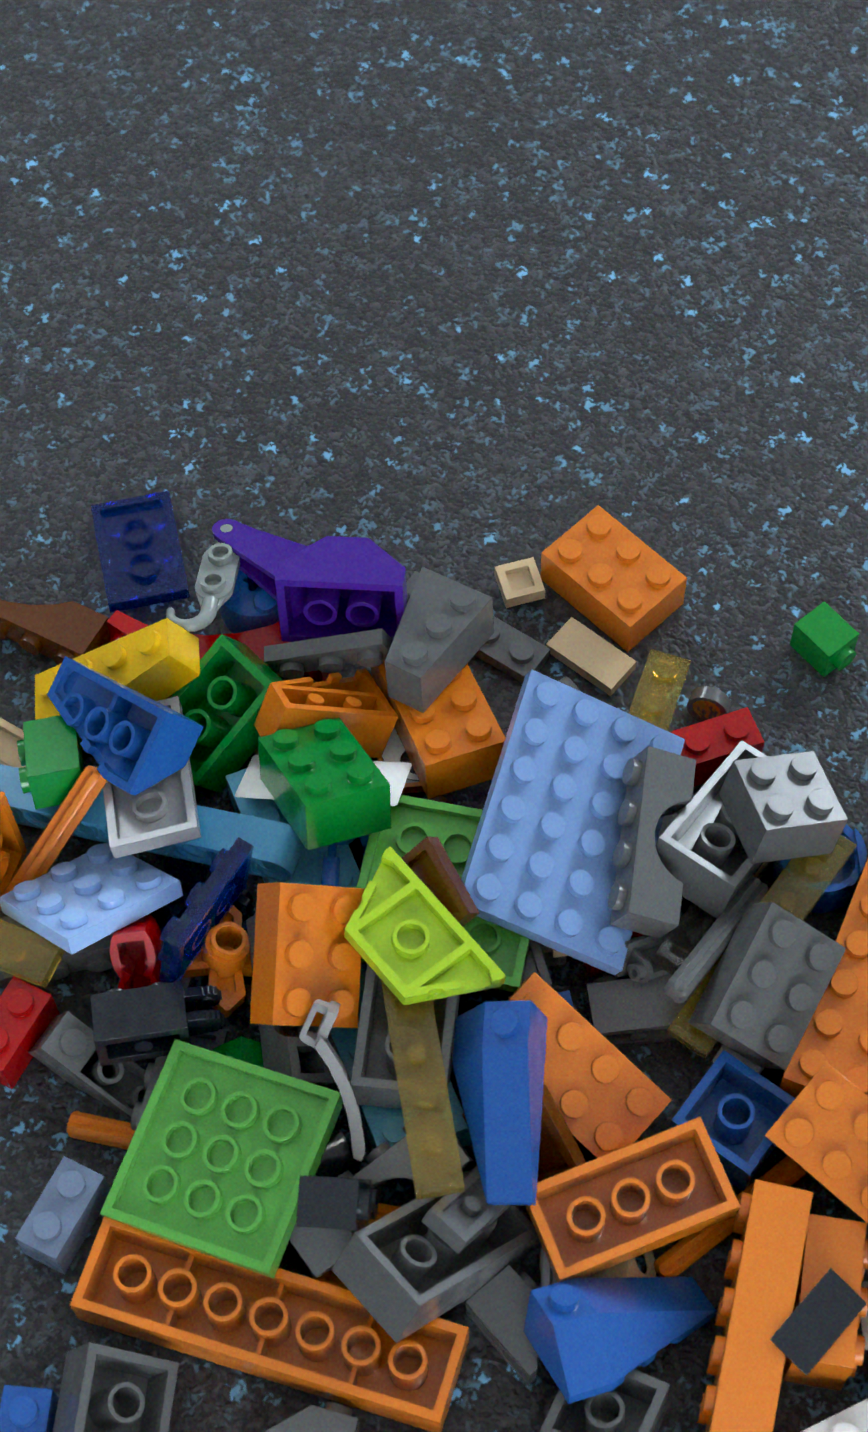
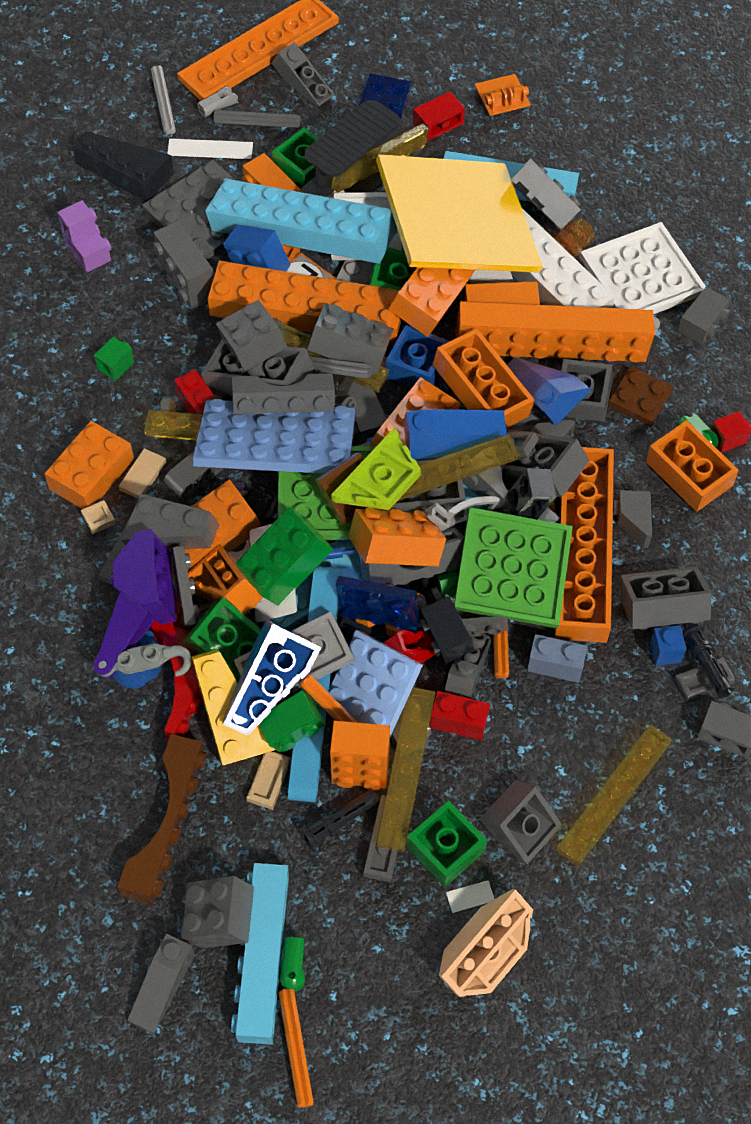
camera: 105 degrees left, 0 degrees up
(139, 551) = (108, 739): clear blue plate -> none
(818, 1321) = (521, 294): black sticker -> none

